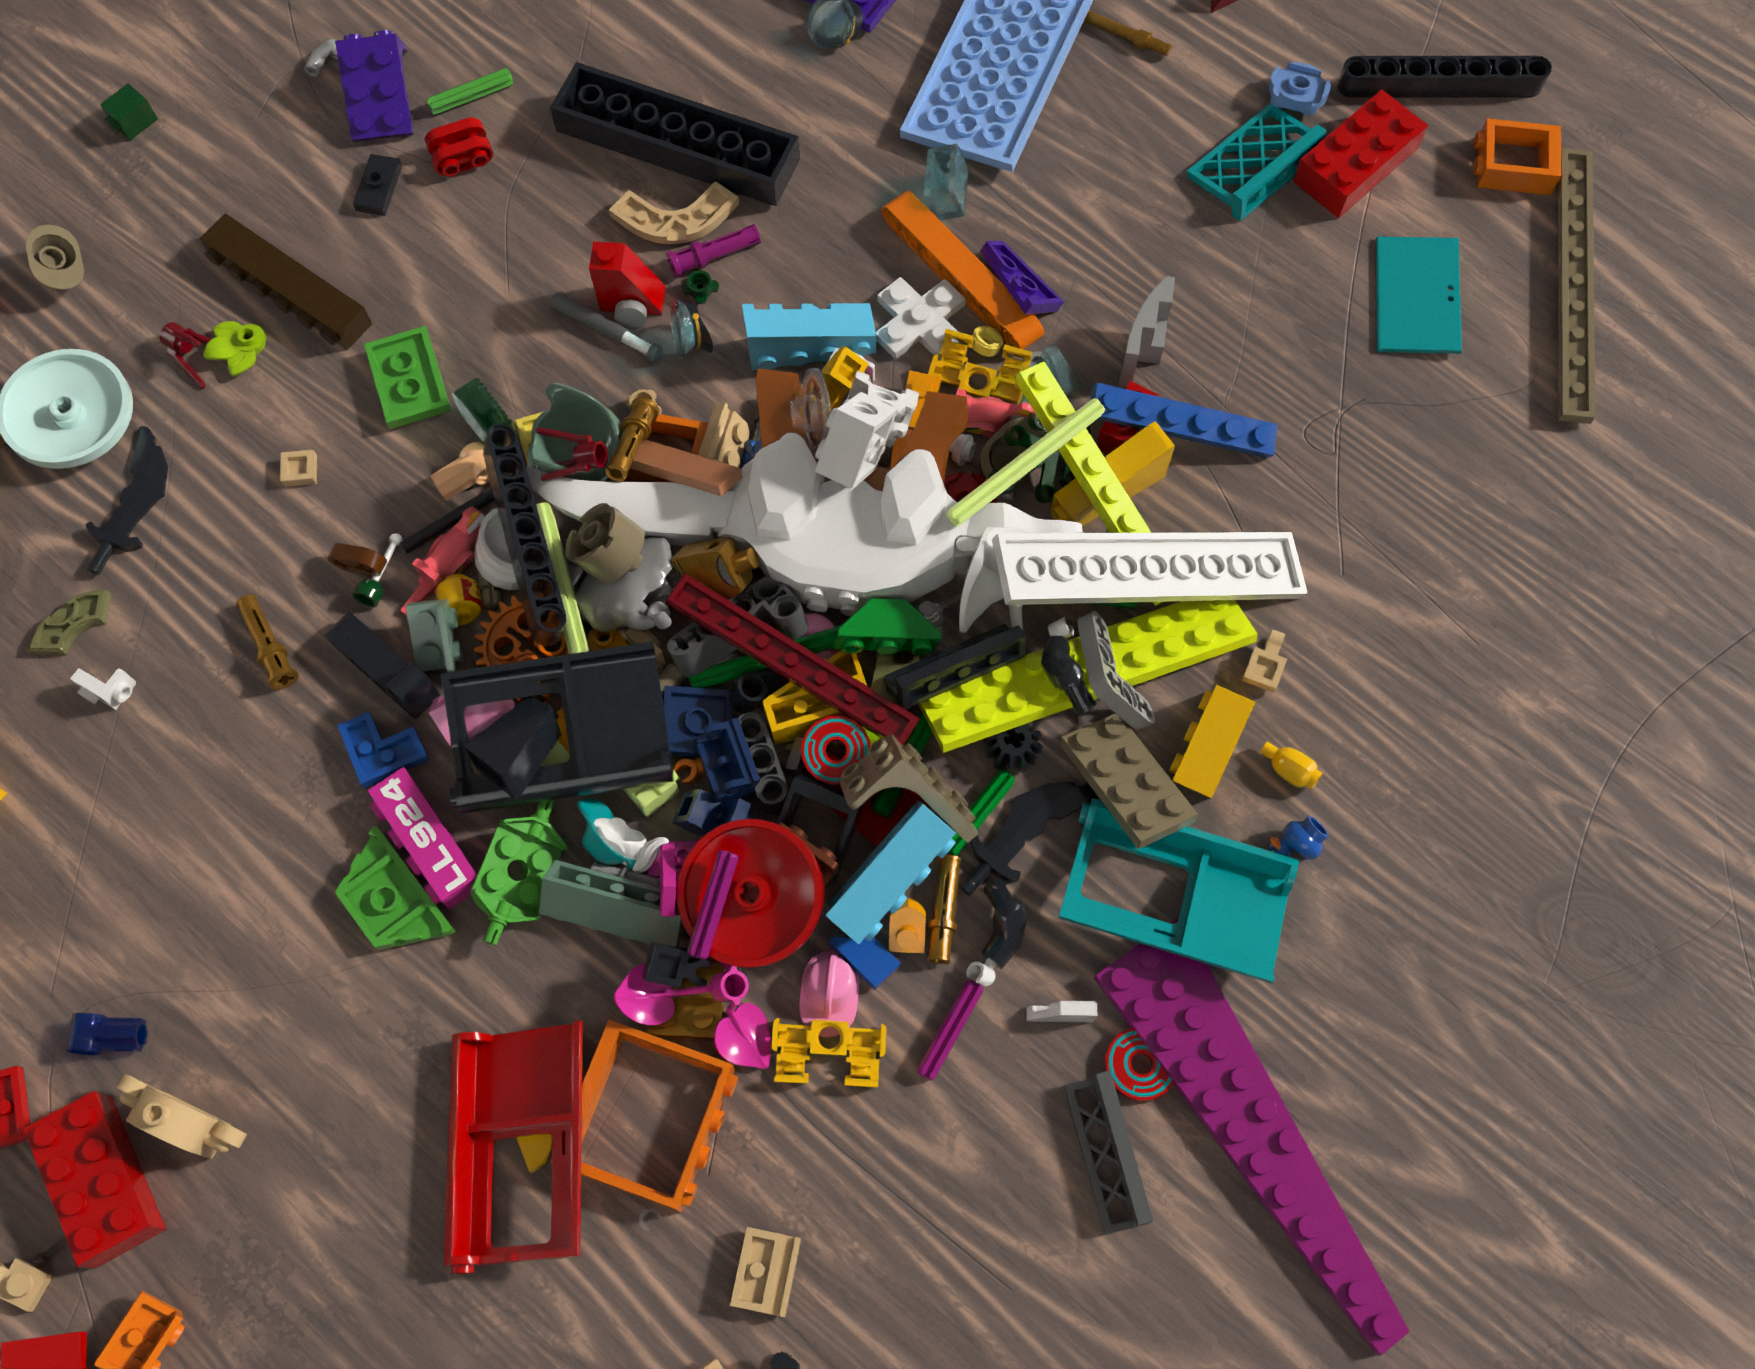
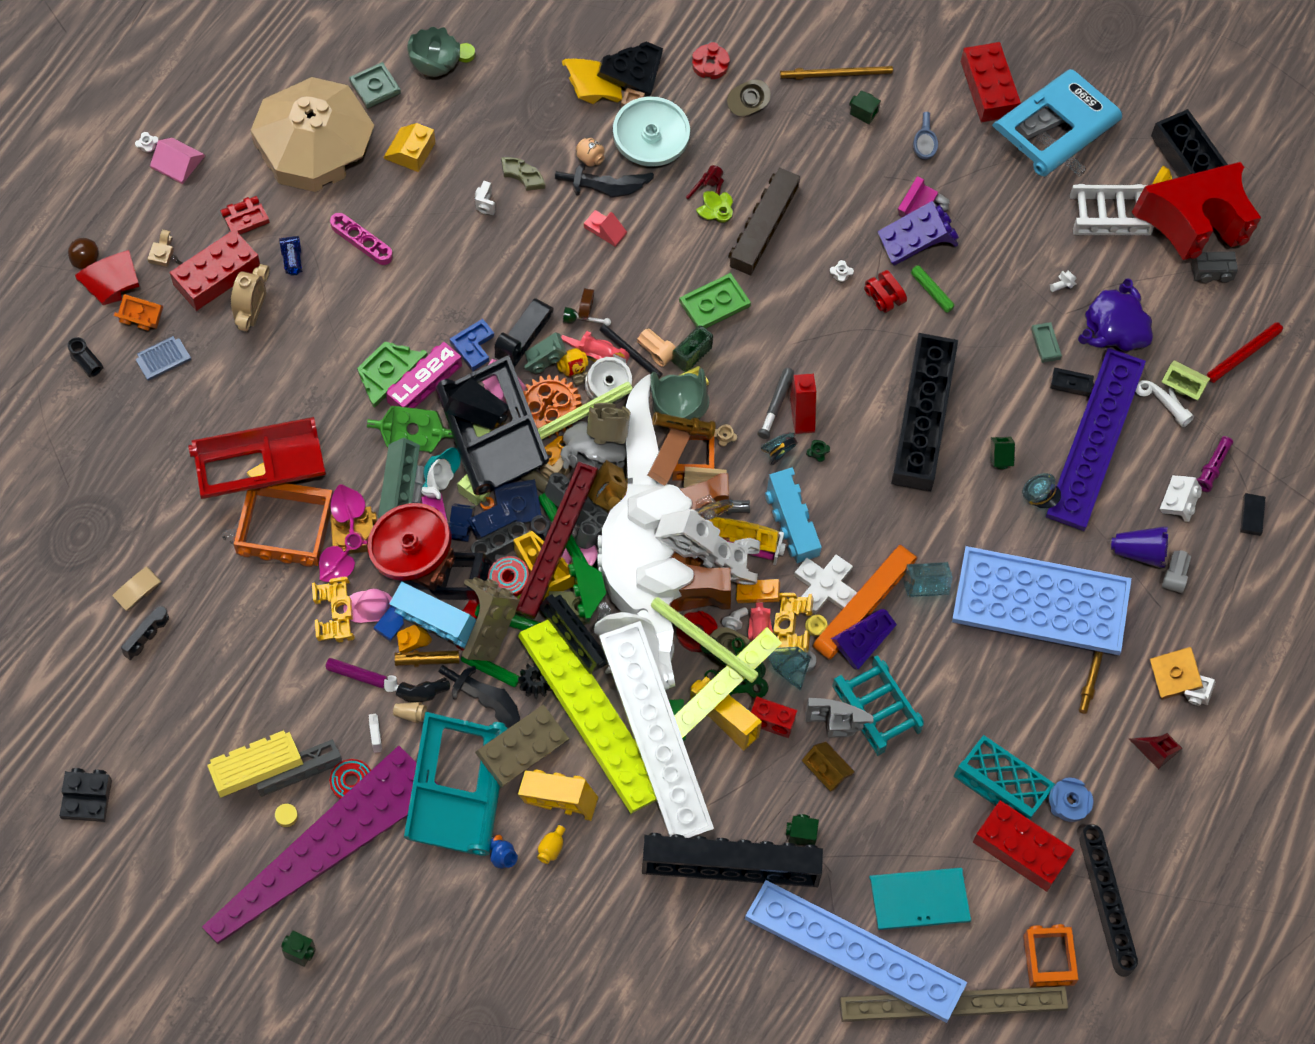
camera: 75 degrees right, 5 degrees down
(33, 187) = (799, 73): none -> pearl gold bar
(70, 507) = (590, 152): none -> light nougat head
(114, 912) = (359, 240): none -> dark pink beam
(213, 49) = (925, 141): none -> sand blue piece
(223, 510) = (606, 227): none -> coral slope
(247, 1306) = (162, 357): none -> sand blue window
(270, 653) = (519, 274): pearl gold pin -> none
(298, 468) = (643, 260): tan tile -> none
(317, 76) = (916, 197): none -> dark pink panel
(377, 184) = (850, 253): black plate -> none
(409, 204) = (841, 276): none -> white plate
(524, 548) = (601, 386): black beam -> none
(585, 456) = (663, 399): dark red plant -> none
(630, 313) = (787, 414): light grey tile -> none
(668, 880) = (406, 498): dark pink plate -> none
(670, 964) = (363, 510): black plate -> none
(678, 225) = (859, 429): tan plate -> none
(700, 254) = (841, 445): magenta pin -> none
(712, 904) = (395, 521): magenta axle -> none
(763, 54) = (1002, 452): none -> dark green brick
(765, 1272) = (208, 598): tan plate -> none
(1036, 948) = (410, 711): none -> tan cone
(1063, 669) = (581, 688): black arm -> none
(1099, 1223) = (254, 764): none -> light yellow hinge
(1103, 674) = (581, 716): light grey beam -> none
(1122, 313) = (879, 740): none -> teal fence
(1186, 420) = (775, 747): blue plate -> none
(1190, 1182) = (286, 815): none -> light yellow tile
(1210, 367) = (827, 765): none -> pearl gold panel
(1266, 665) = (615, 823): tan plate -> none
(1307, 415) = (802, 830): none -> dark green brick
(1352, 514) = (732, 860): none -> black brick
(1436, 1188) = (298, 948): none -> dark green brick
(1496, 383) = (856, 951): none -> light blue plate

